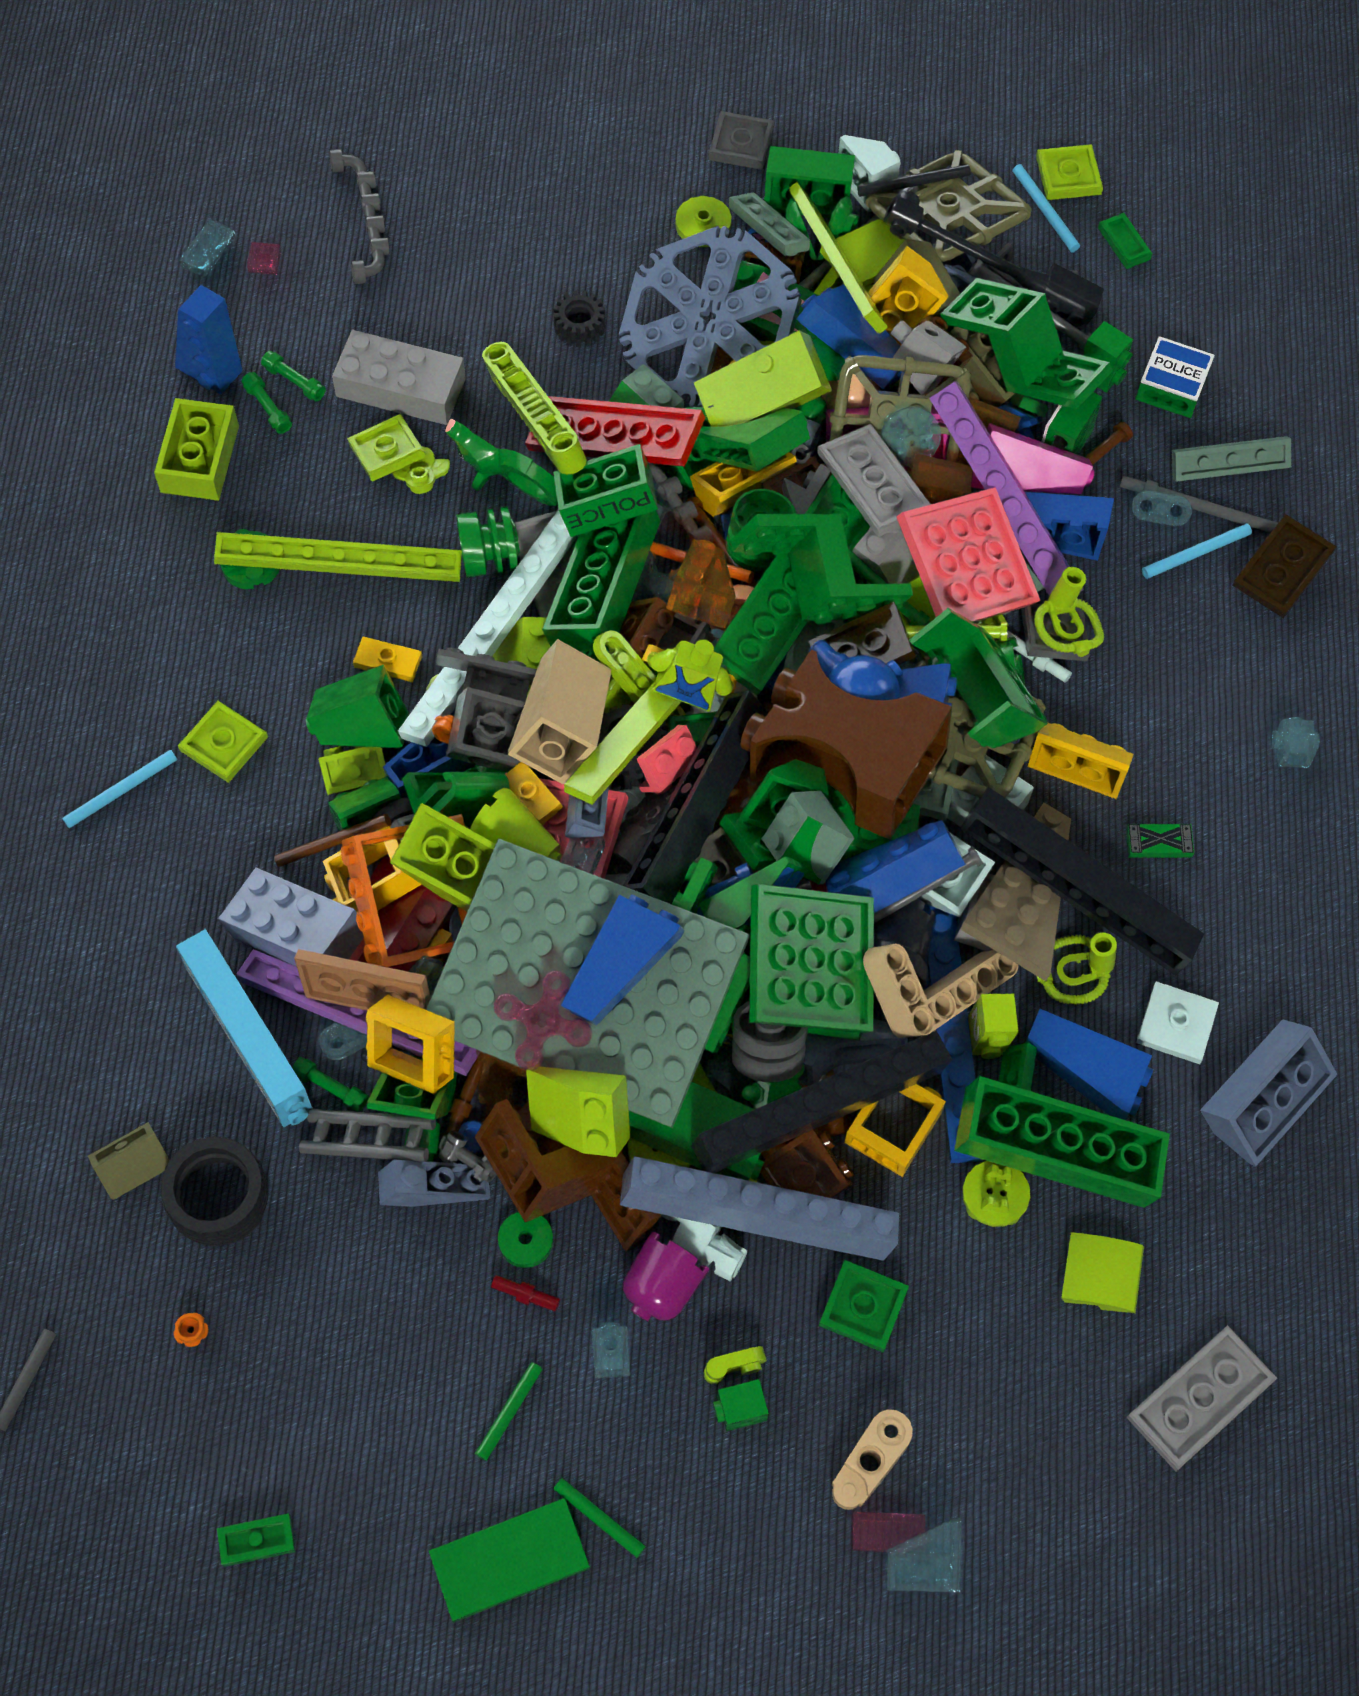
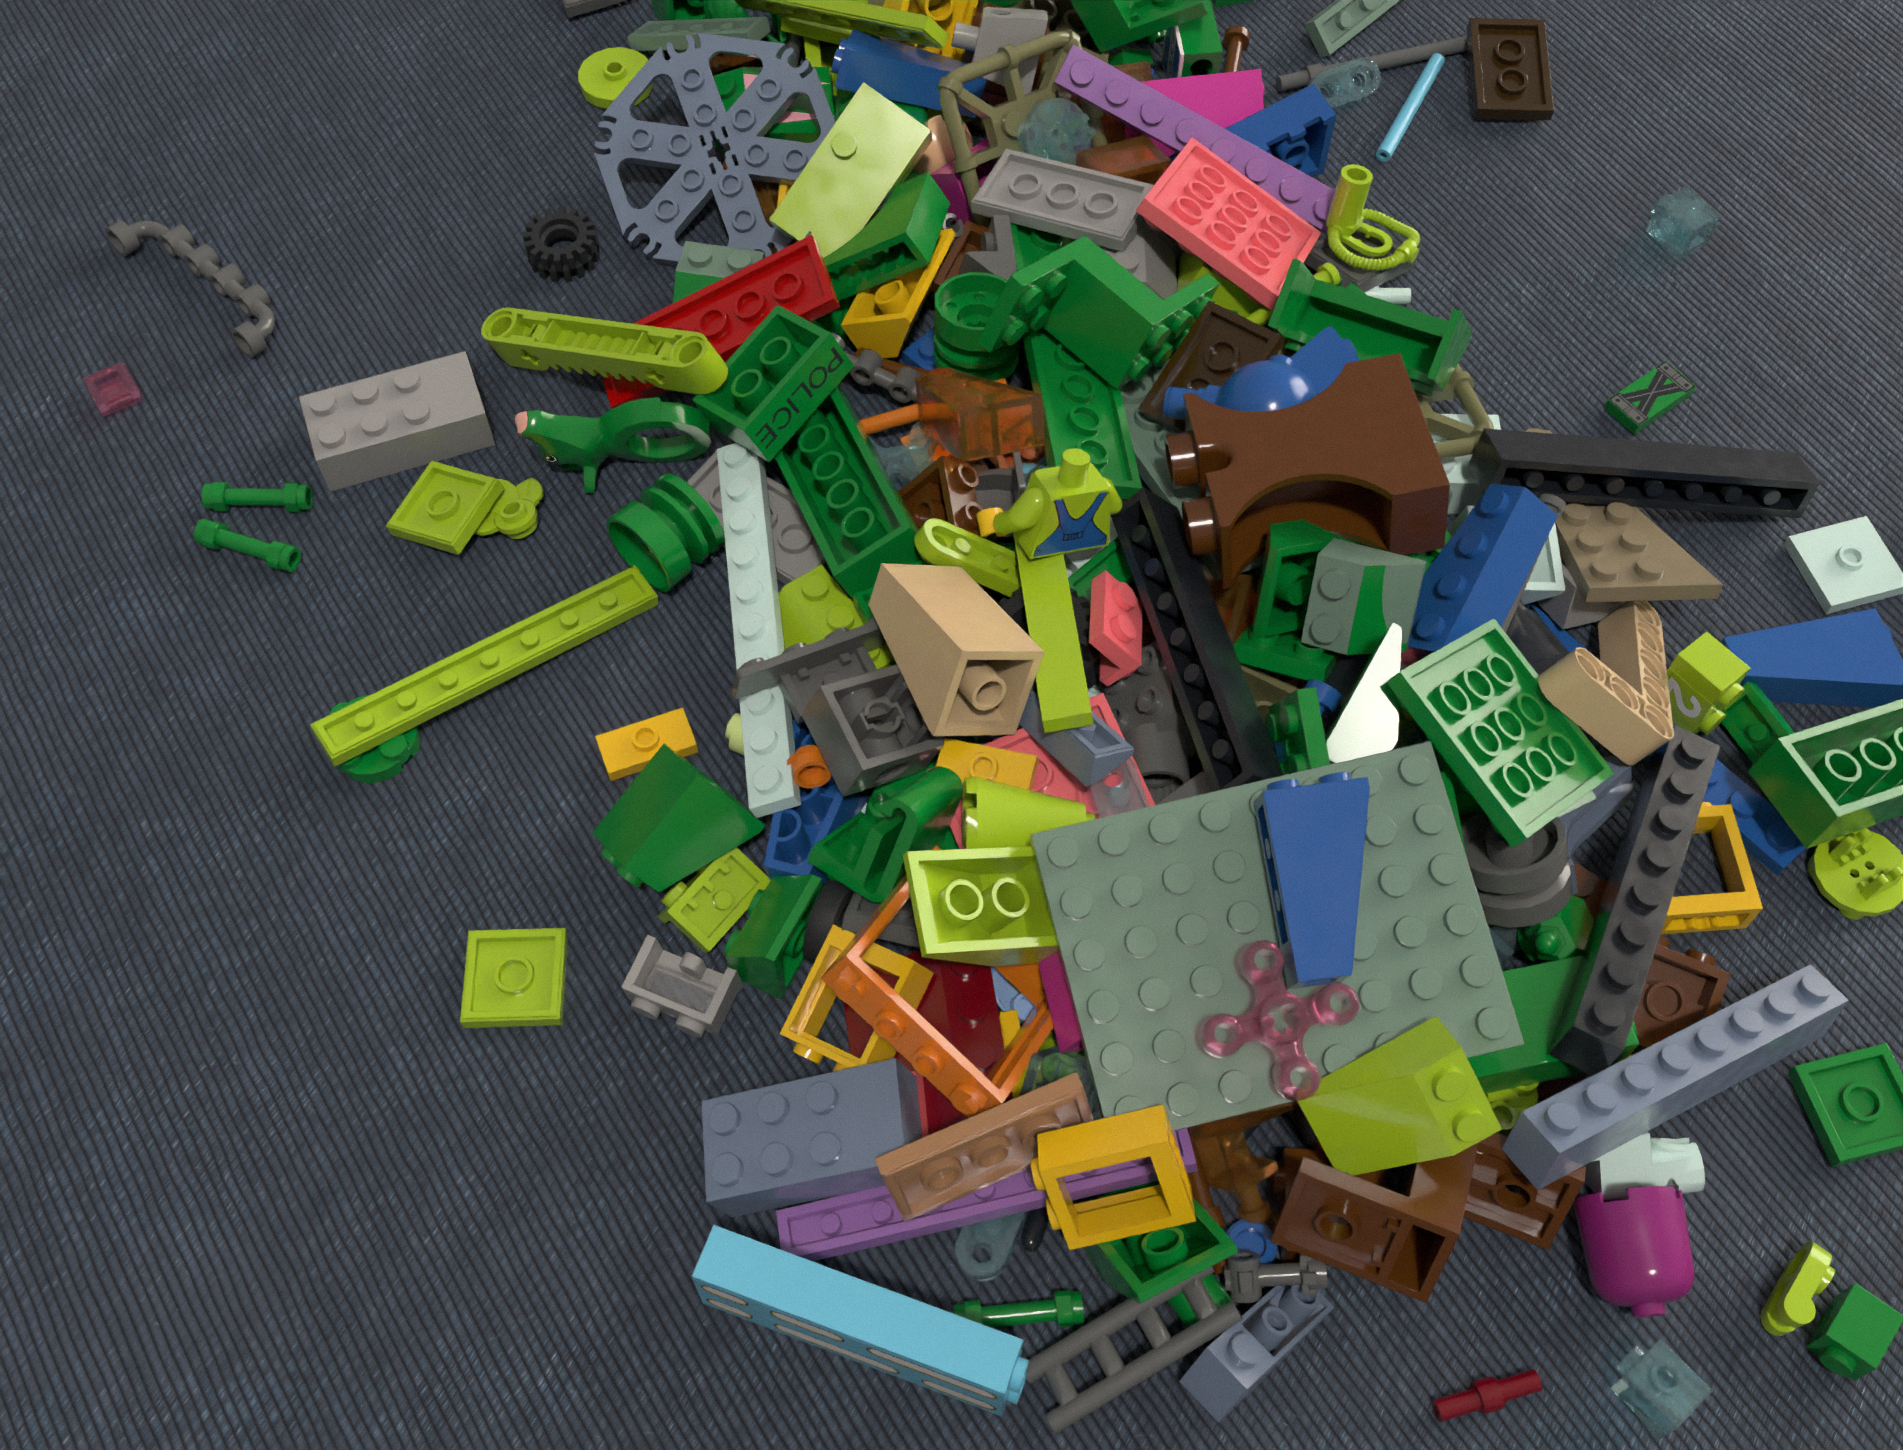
camera: 35 degrees left, 5 degrees down
(119, 789) = (421, 1132): medium azure bar -> none
(196, 449) = (199, 647): lime brick -> none
(207, 248) = (27, 417): clear light blue plate -> none
(207, 341) = (119, 506): blue wedge -> none
(297, 803) = (680, 989): none -> light grey window
(331, 840) = (771, 999): reddish brown bar -> none
(525, 1254) = (1418, 1350): green piece -> none
(1080, 759) = (1521, 361): yellow slope -> none
(1100, 960) = (1722, 553): lime piece -> none

